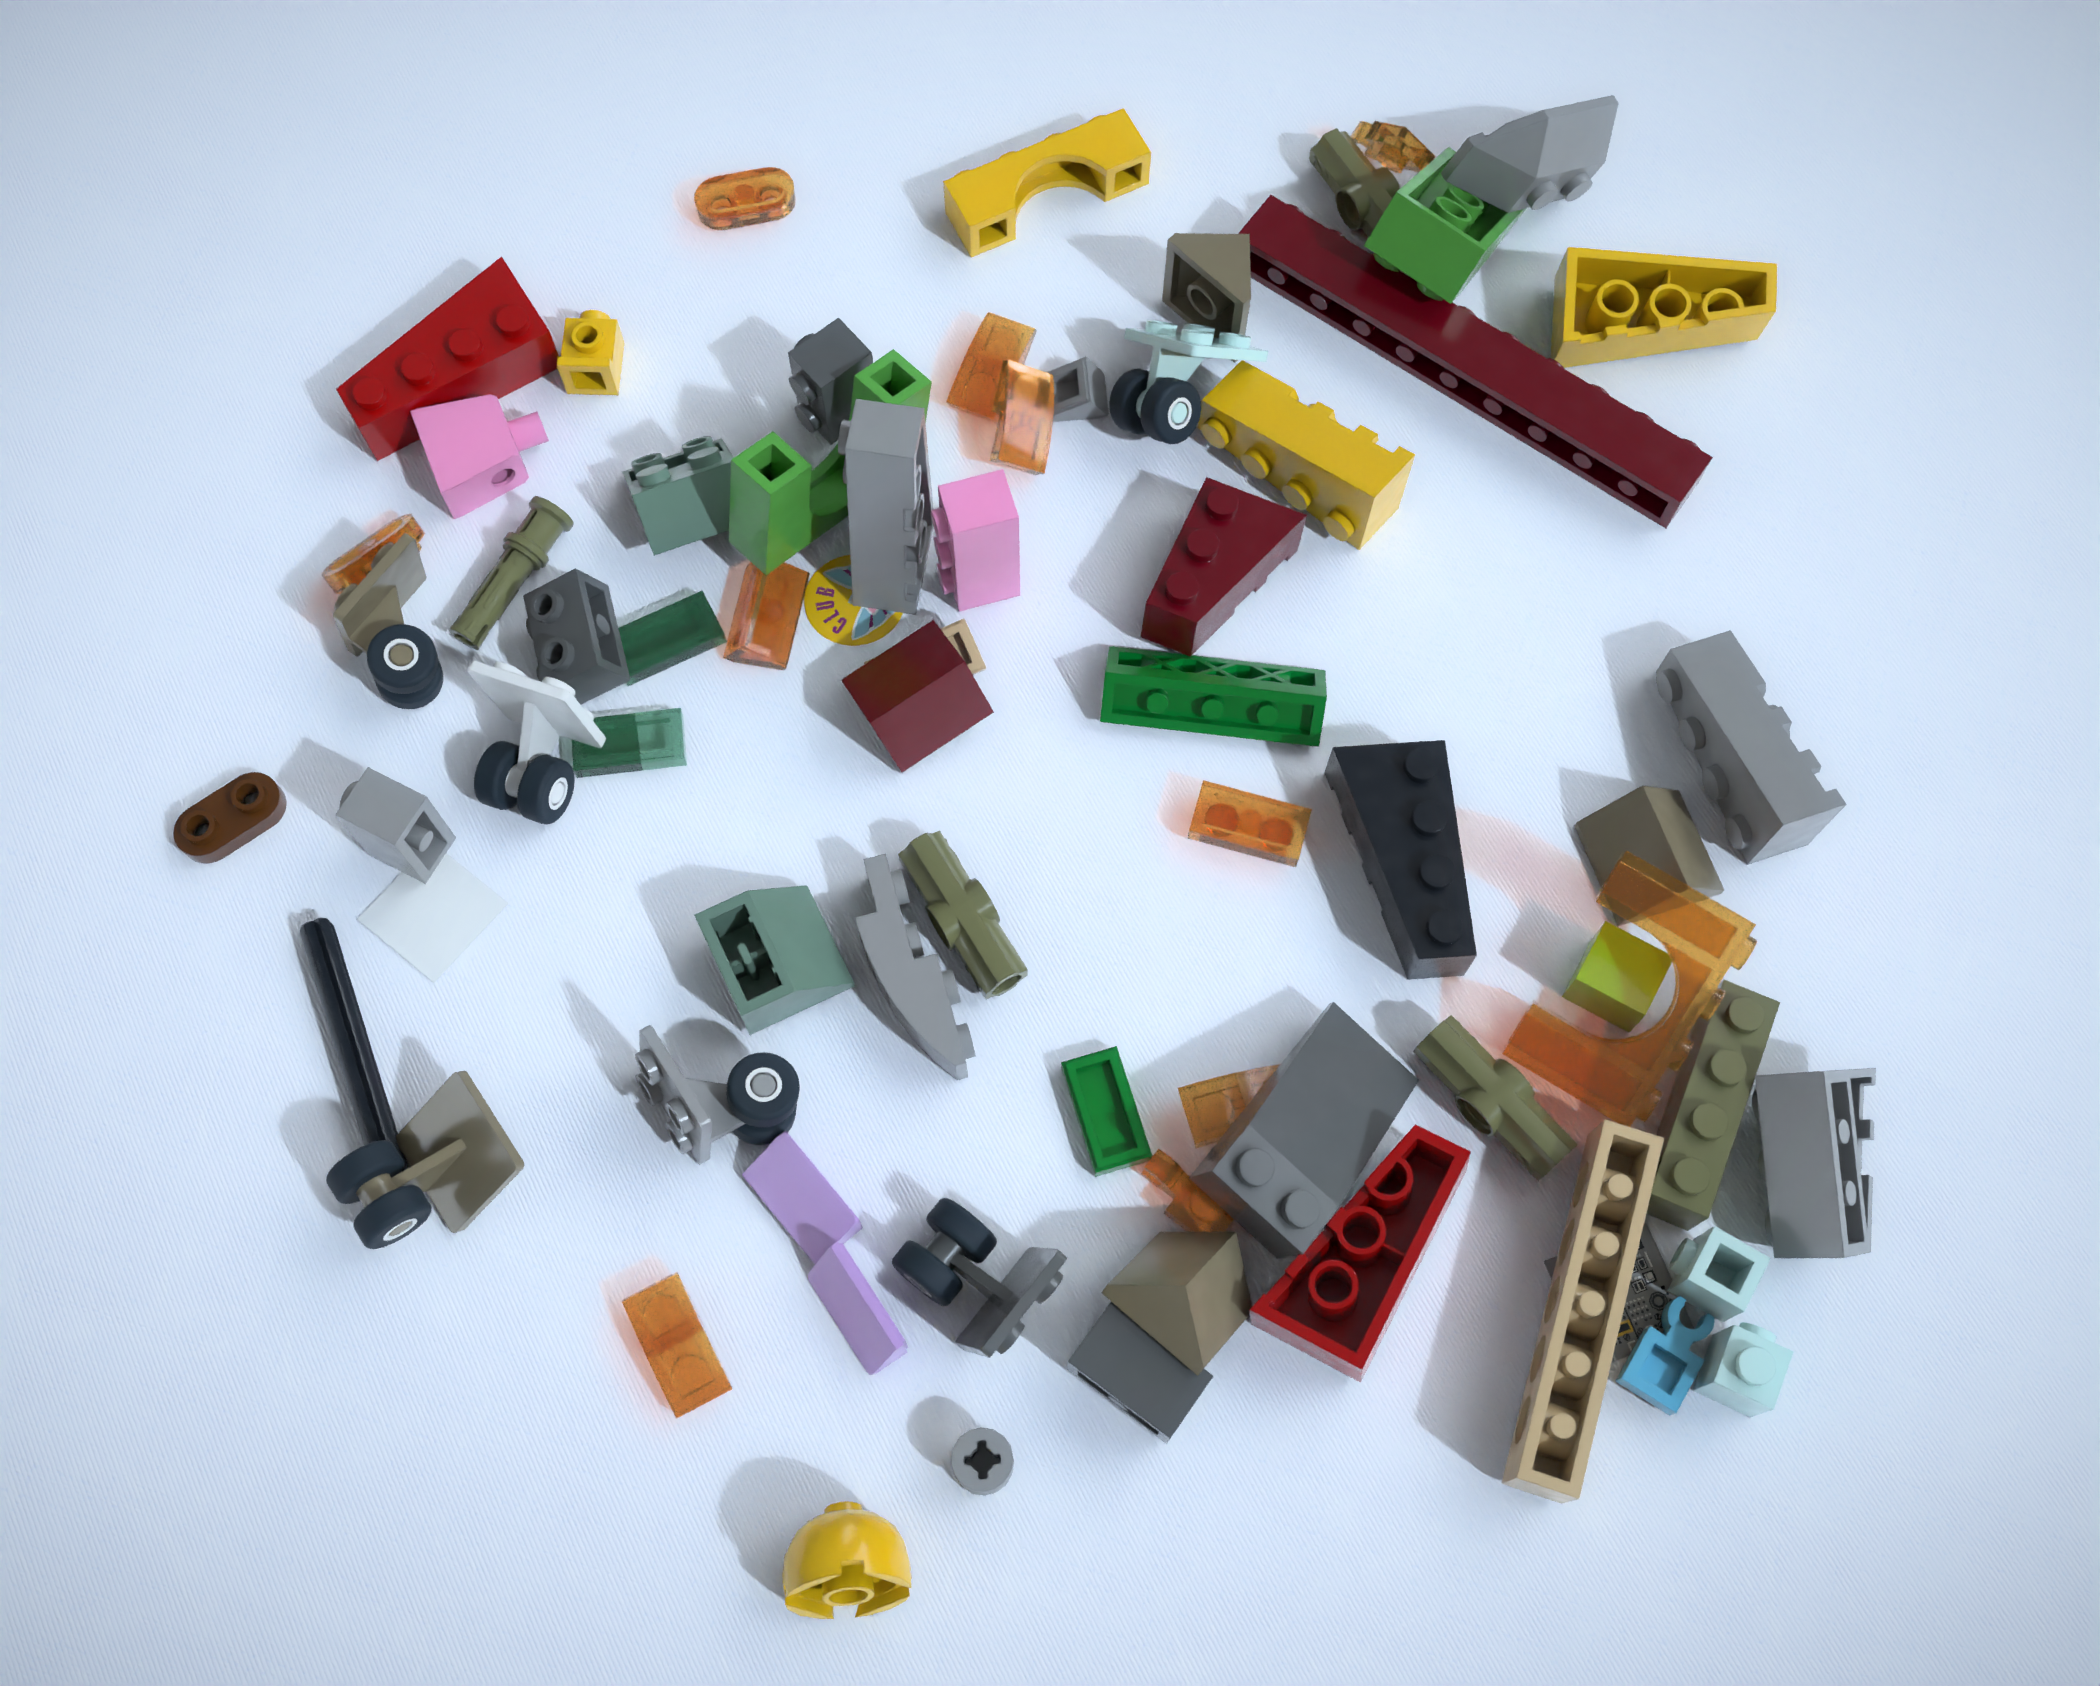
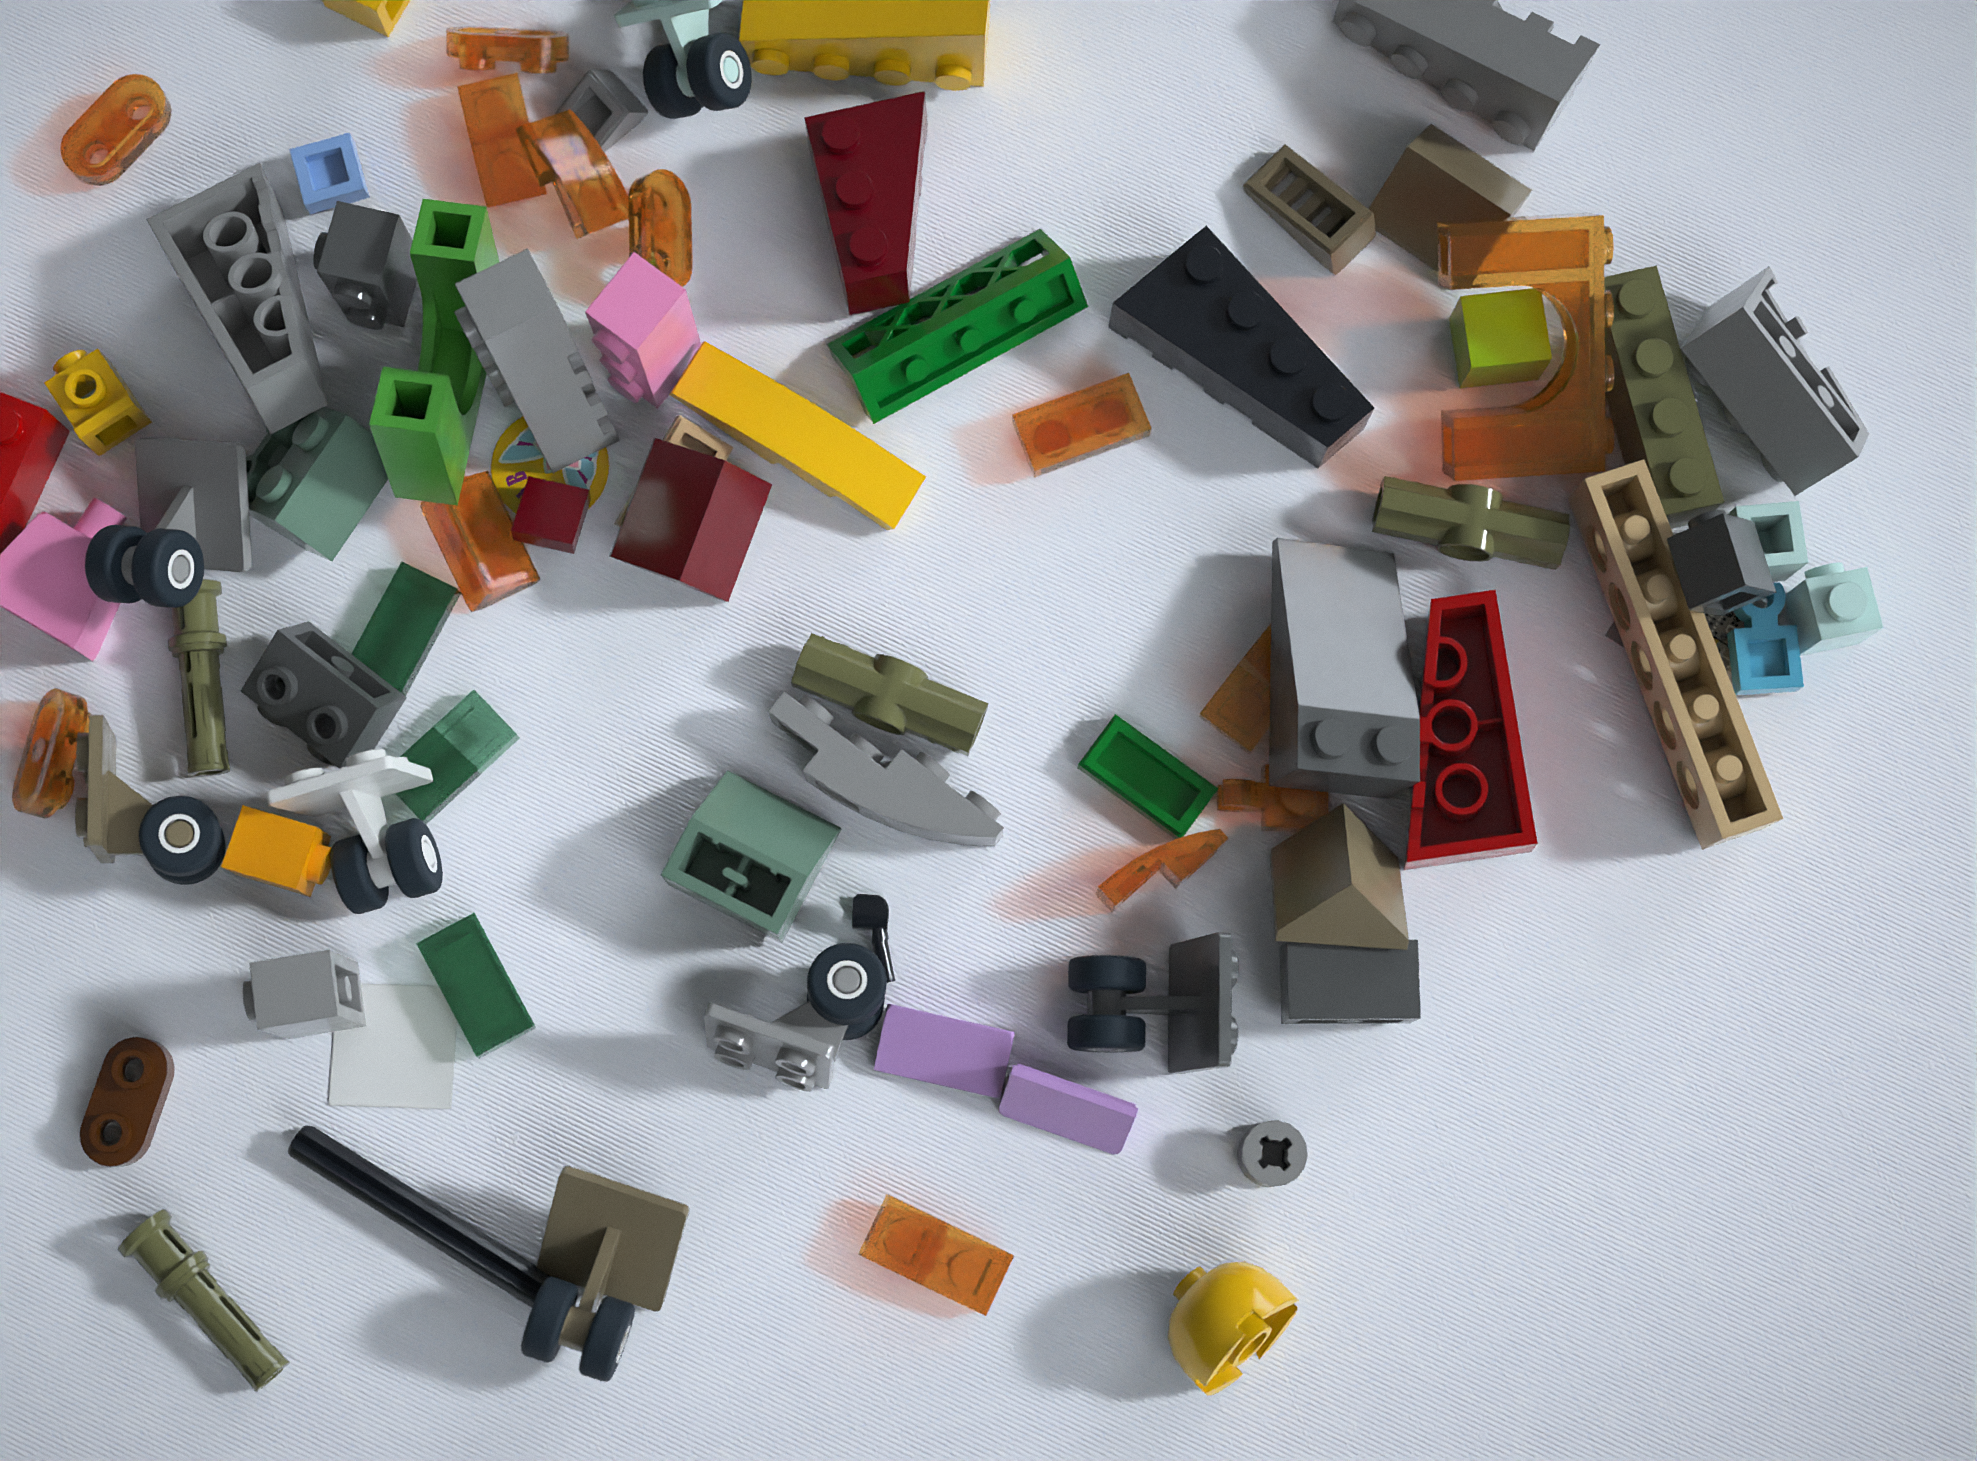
camera: 40 degrees left, 10 degrees up
(163, 964) = (185, 1278): none -> olive pin
(459, 718) = (278, 851): none -> light orange brick
(517, 909) = (476, 985): none -> clear green tile
(581, 470) = (189, 522): none -> light grey plate
(738, 345) = (244, 281): none -> light grey wedge
(826, 628) = (551, 514): none -> dark red tile
(830, 1063) = (872, 913): none -> black hand
(862, 310) = (329, 173): none -> light blue plate
(1025, 298) = (483, 46): none -> clear orange plate
(1038, 691) = (797, 435): none -> yellow slope
(1052, 498) = (662, 223): none -> clear orange plate
(1082, 1183) = (1174, 860): none -> clear orange slope
(1545, 823) = (1338, 235): none -> dark tan slope
(1668, 1259) = (1720, 563): none -> dark grey brick

